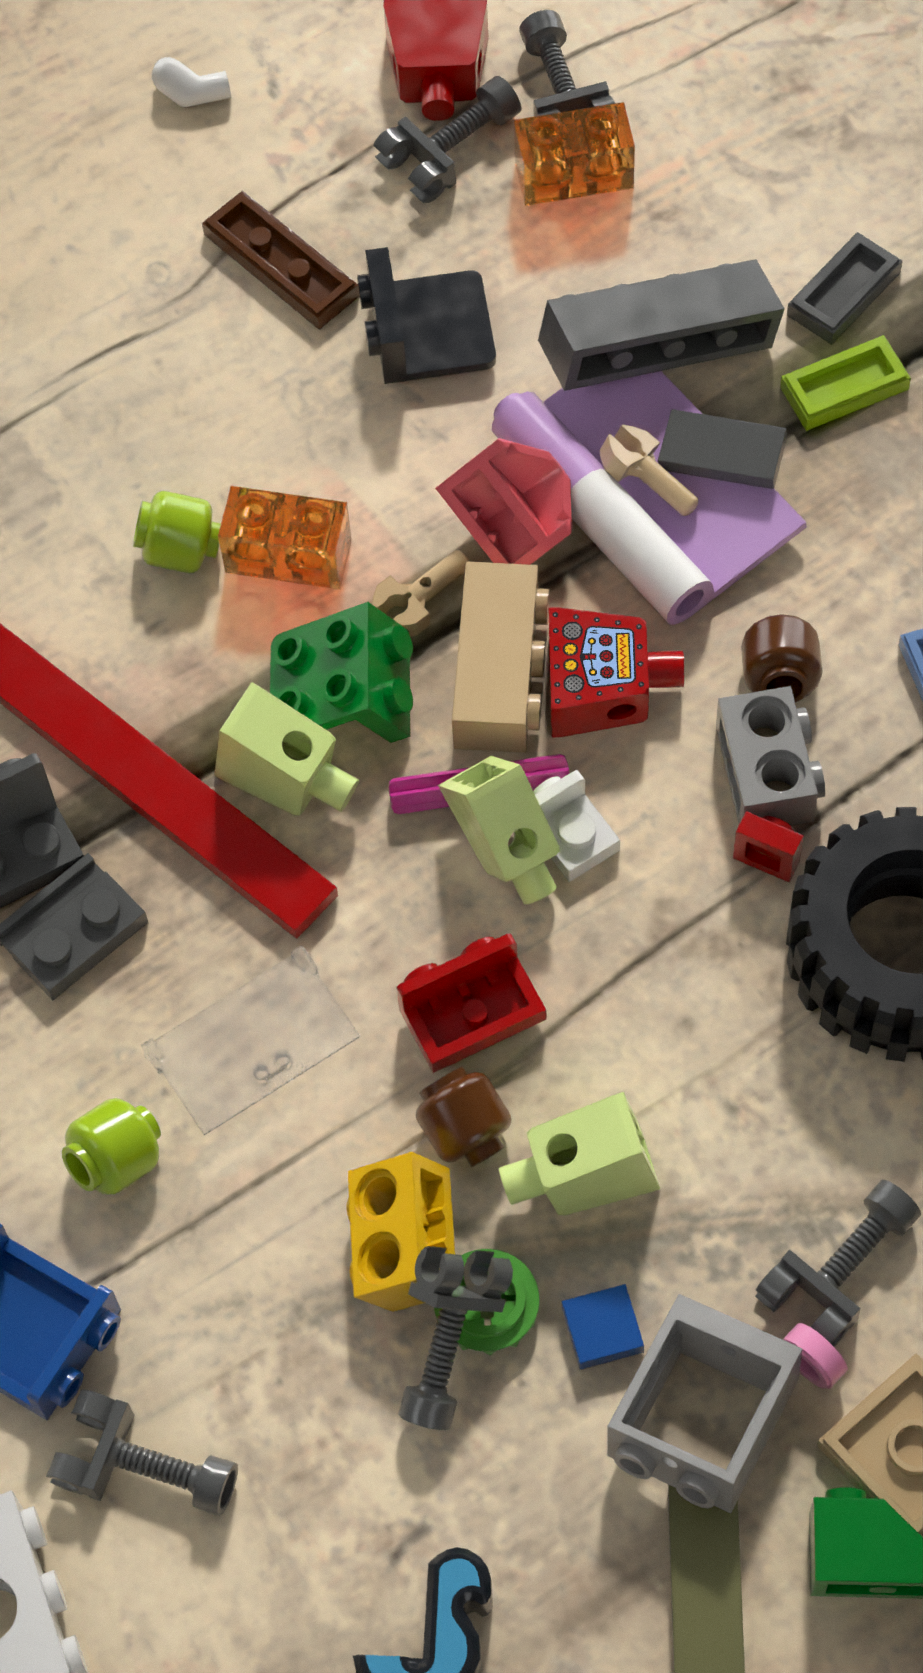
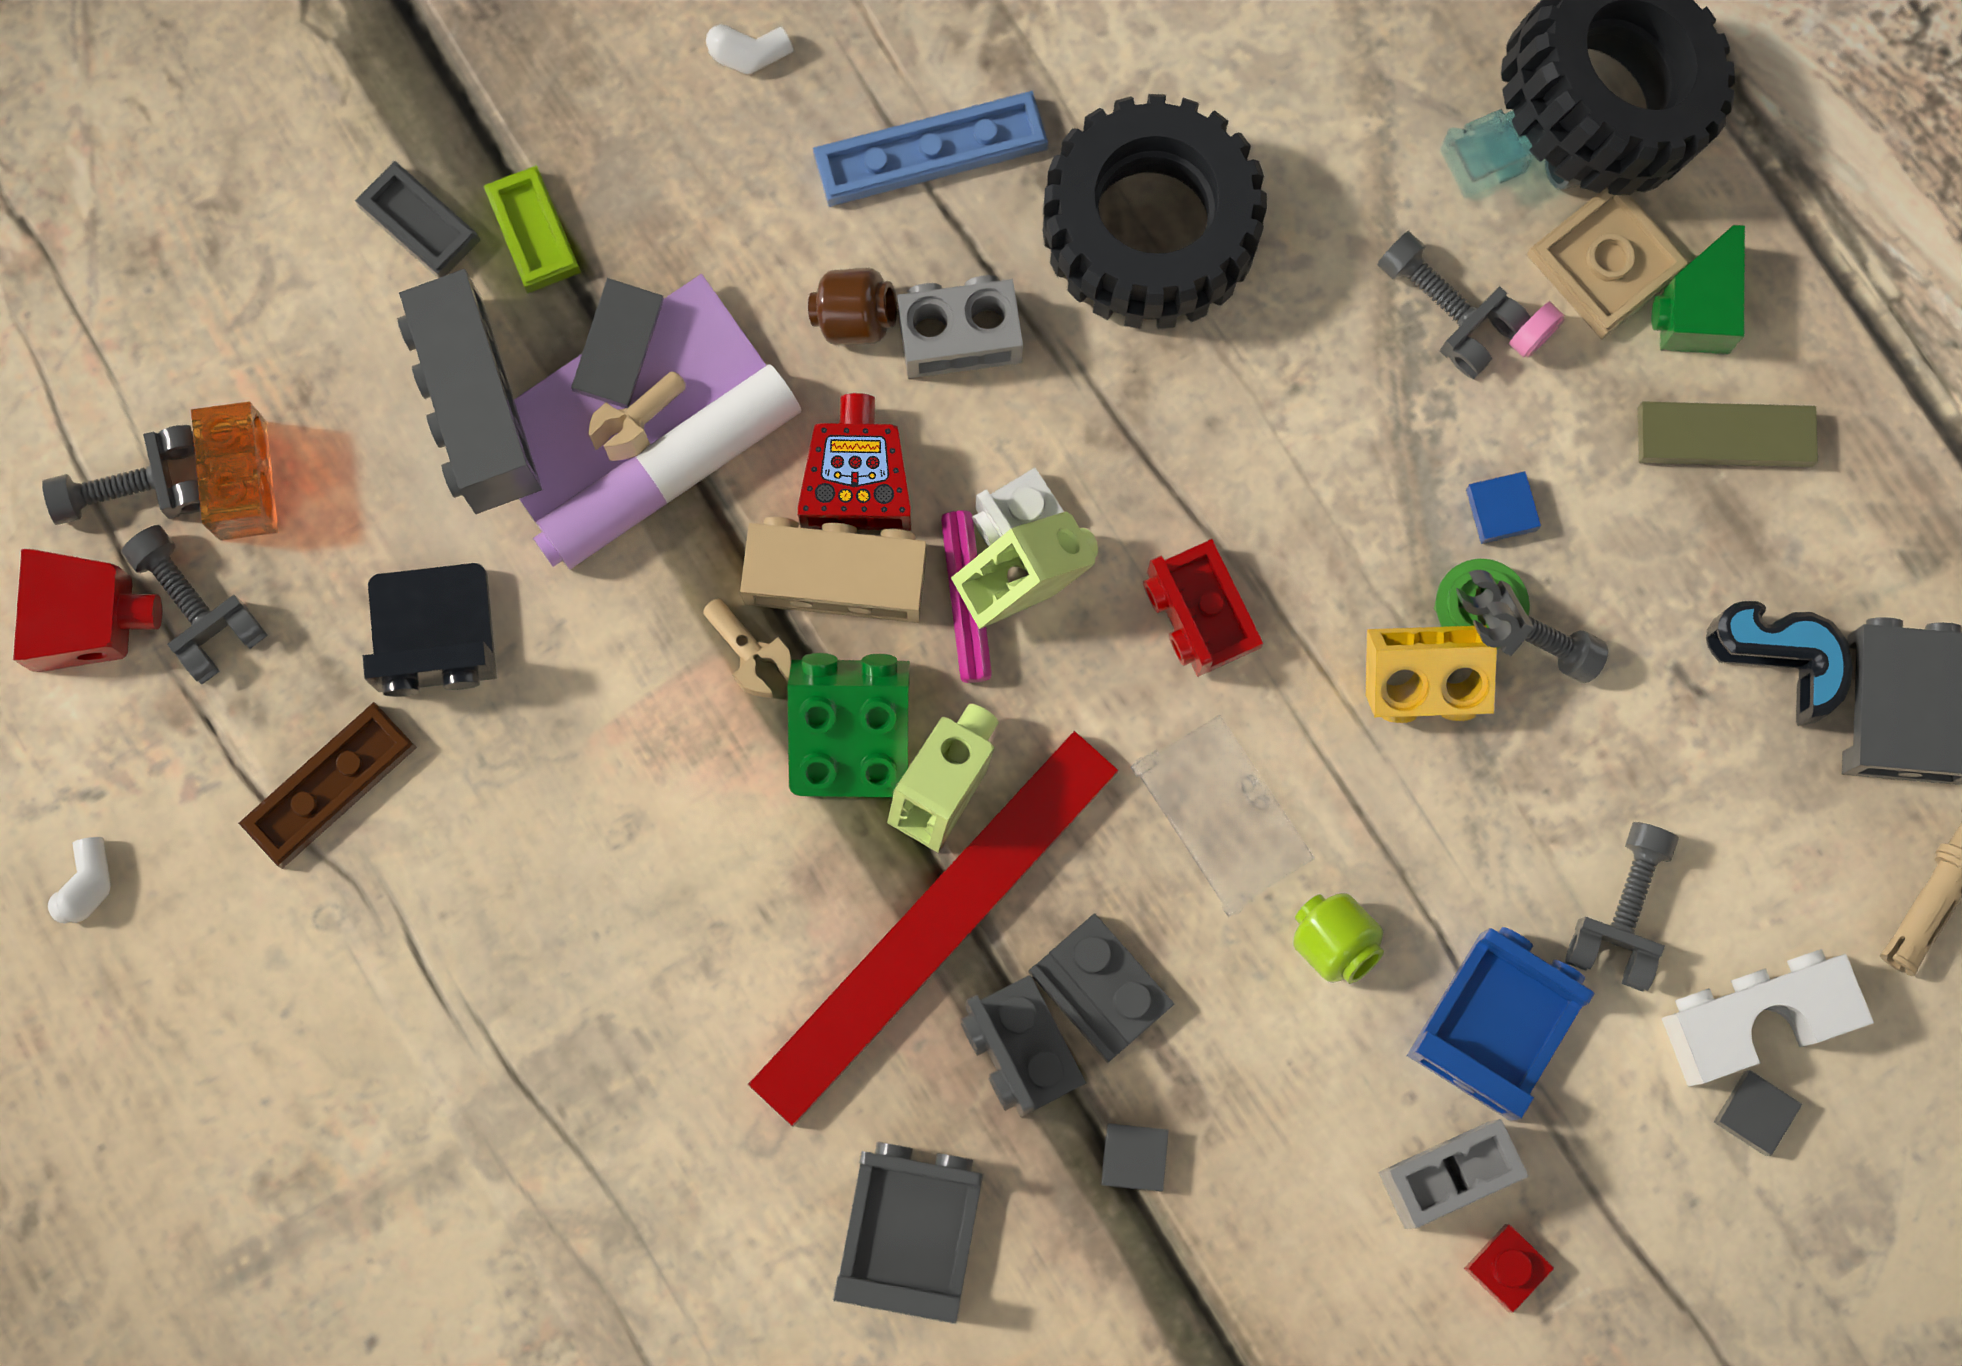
camera: 95 degrees left, 15 degrees up
(176, 532) = (671, 886): lime head -> none
(285, 537) = (687, 774): clear orange brick -> none
(463, 1117) = (1314, 617): reddish brown head -> none
(512, 501) = (671, 546): coral slope -> none
(584, 1159) = (1370, 484): yellowish green torso -> none
(730, 1348) = (1564, 354): light grey window -> none
(768, 845) = (1048, 331): red plate -> none

